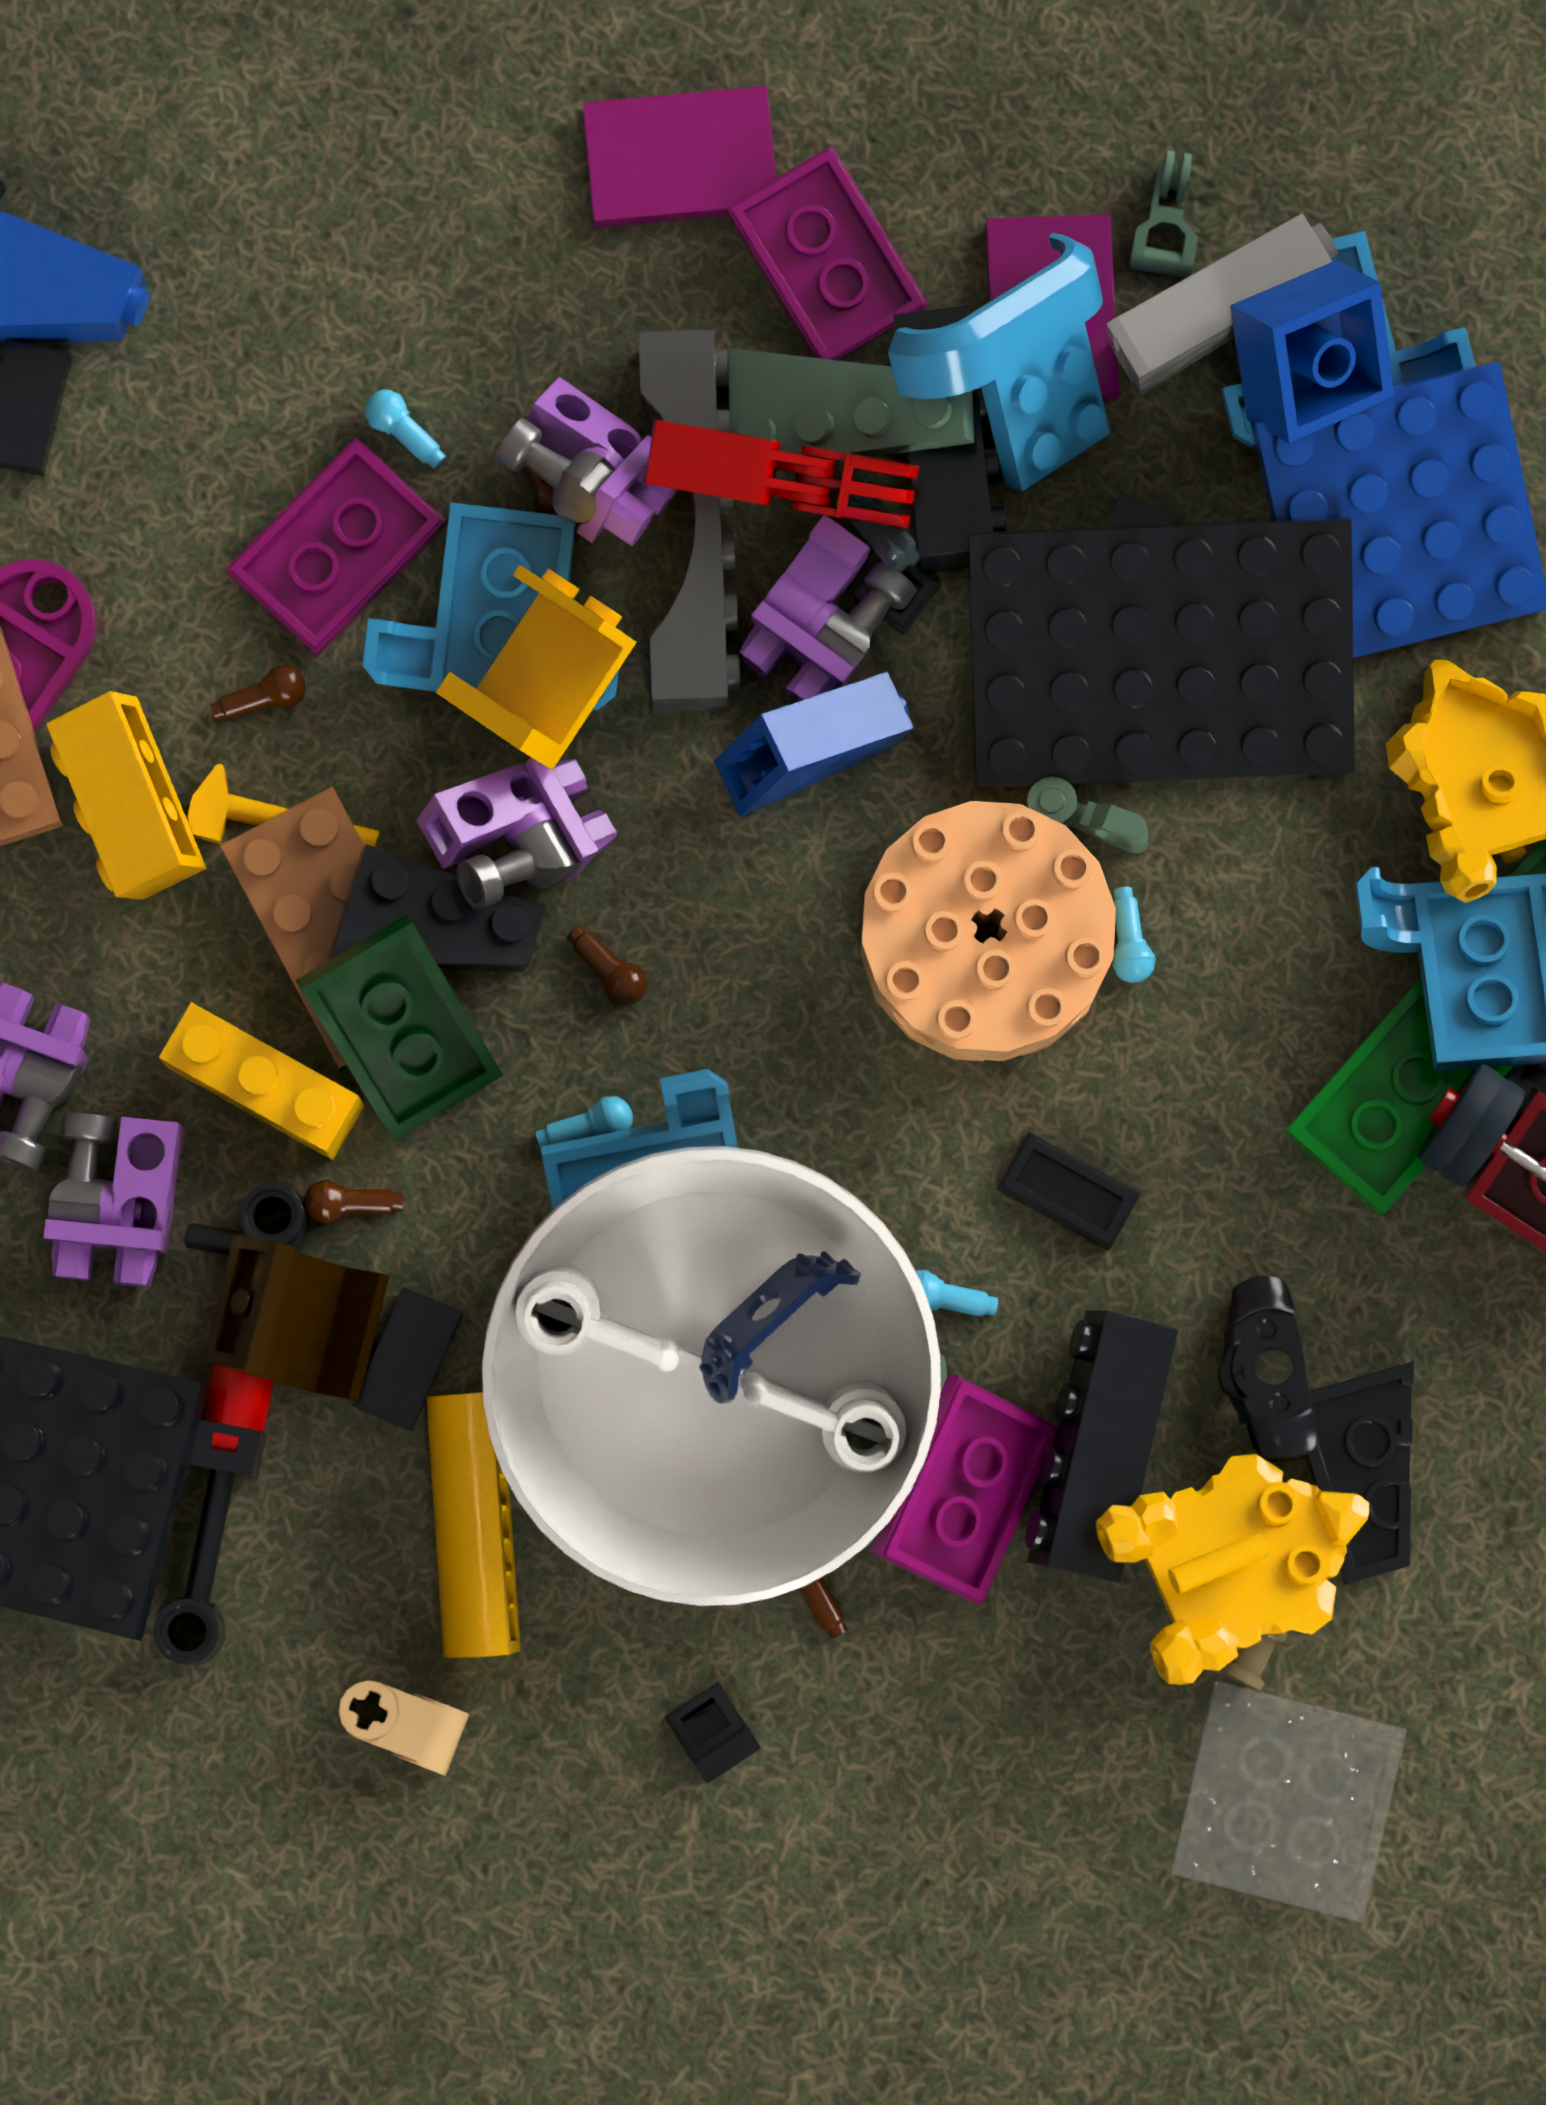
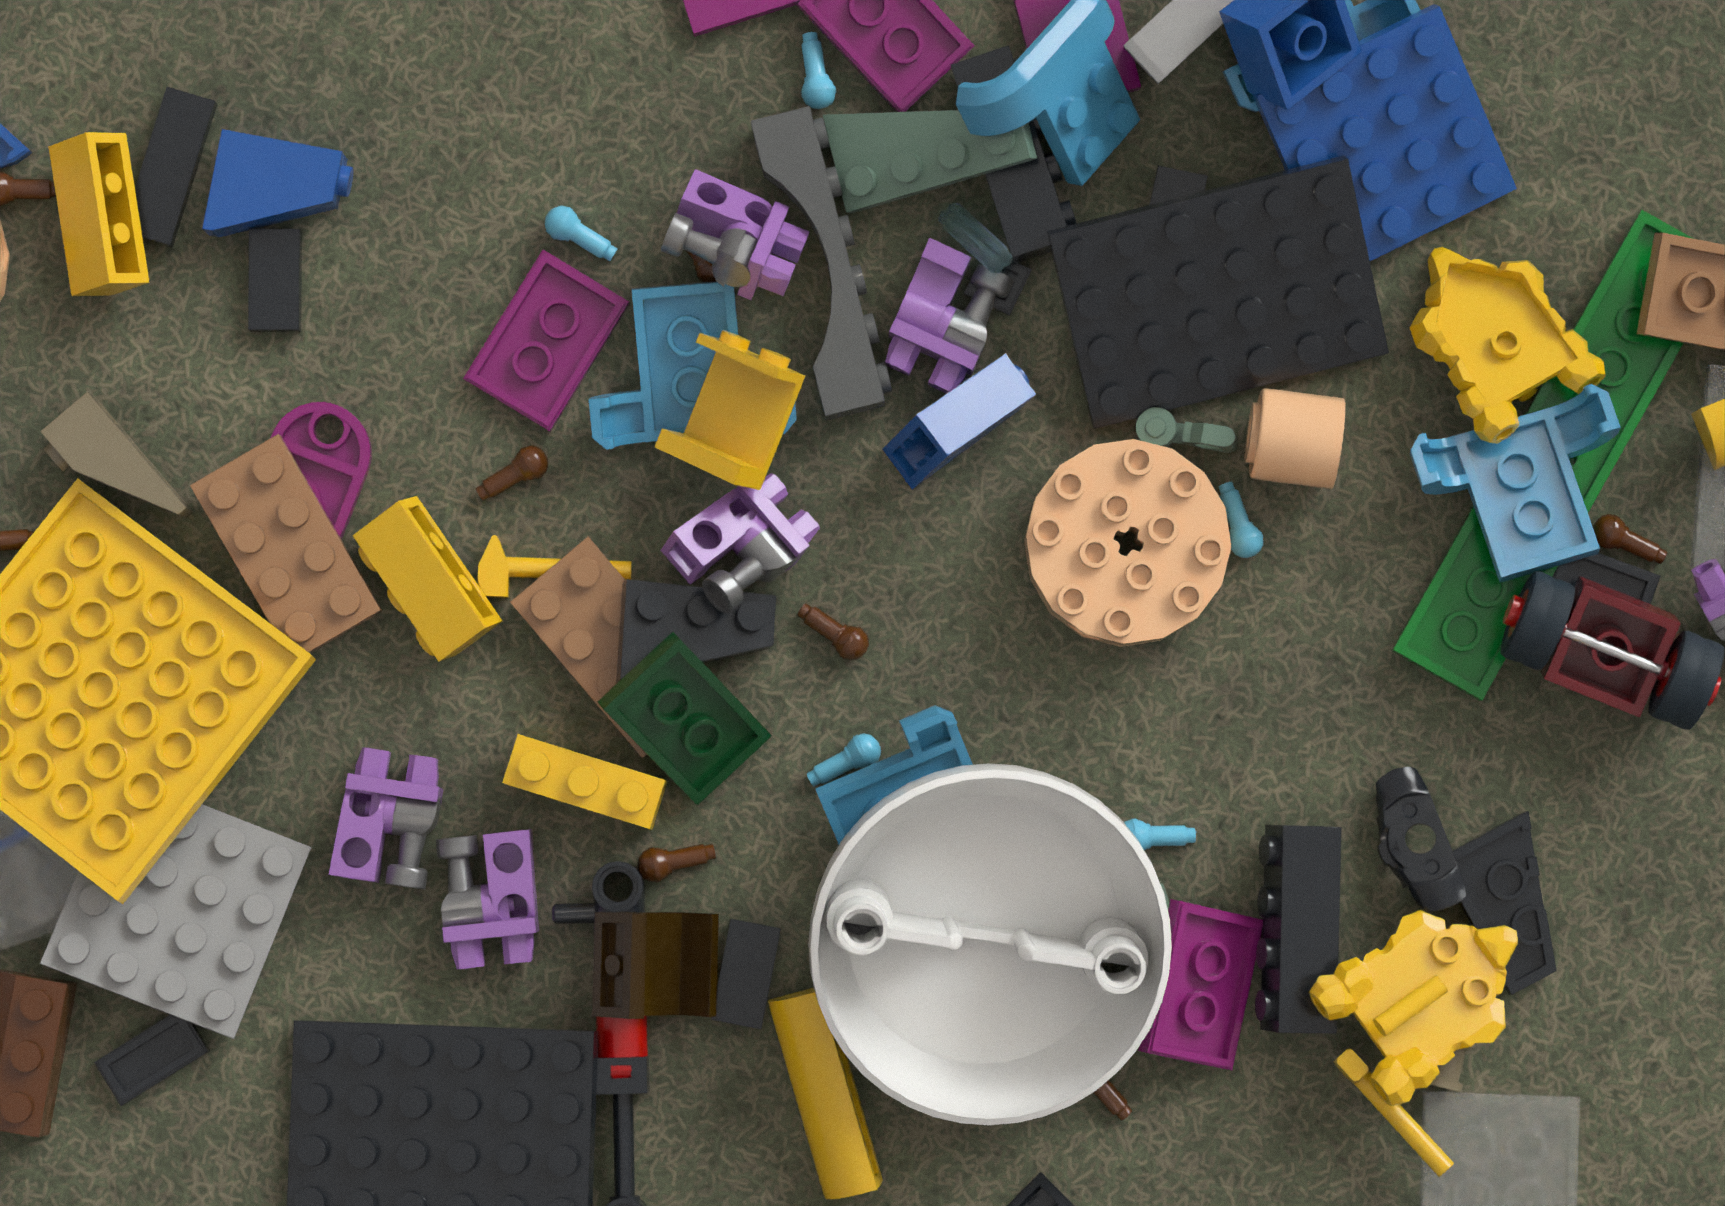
camera: 10 degrees left, 5 degrees up
(729, 314) = (817, 89): none -> medium azure piece
(731, 1342) = (1003, 910): dark blue piece -> none
(746, 467) = (859, 219): red arm -> none
(1068, 1191) = (1232, 732): black tile -> none
(1135, 1639) = (1359, 1074): none -> yellow piece
(1218, 846) = (1295, 438): none -> light nougat piece

